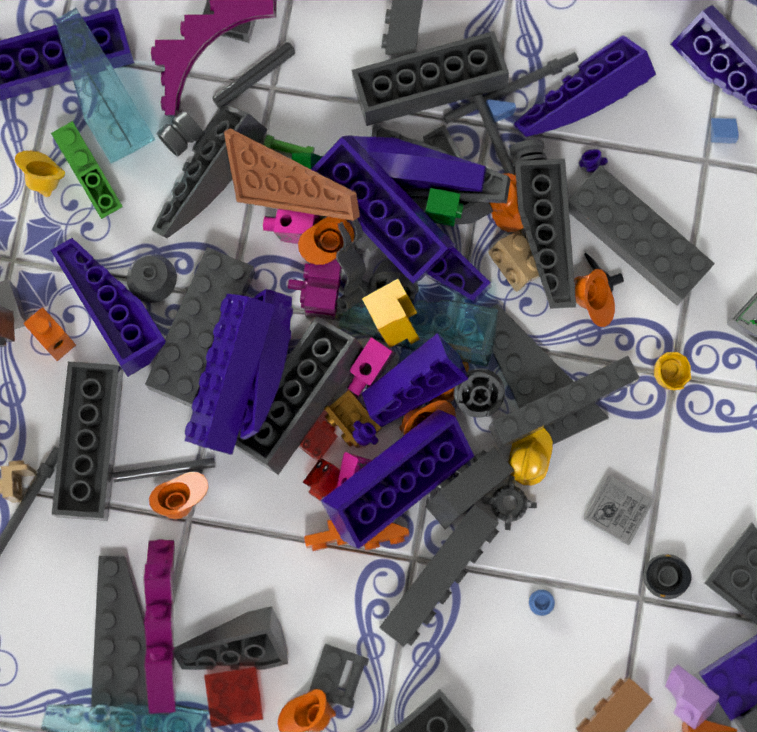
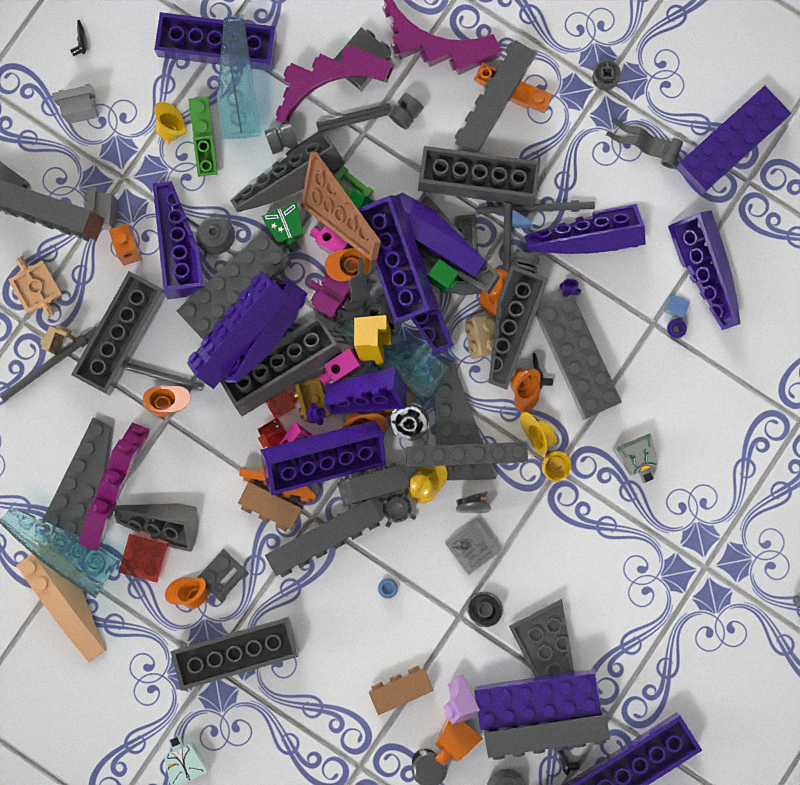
camera: 25 degrees right, 5 degrees up
(230, 232) = (285, 226): none -> green torso
(311, 41) = (405, 111): none -> dark grey wheel
(358, 568) = (269, 507): none -> medium nougat brick
(598, 457) = (473, 504): none -> dark grey piece
(633, 341) = (538, 432): none -> yellow piece
(740, 150) = (681, 324): none -> dark purple plate

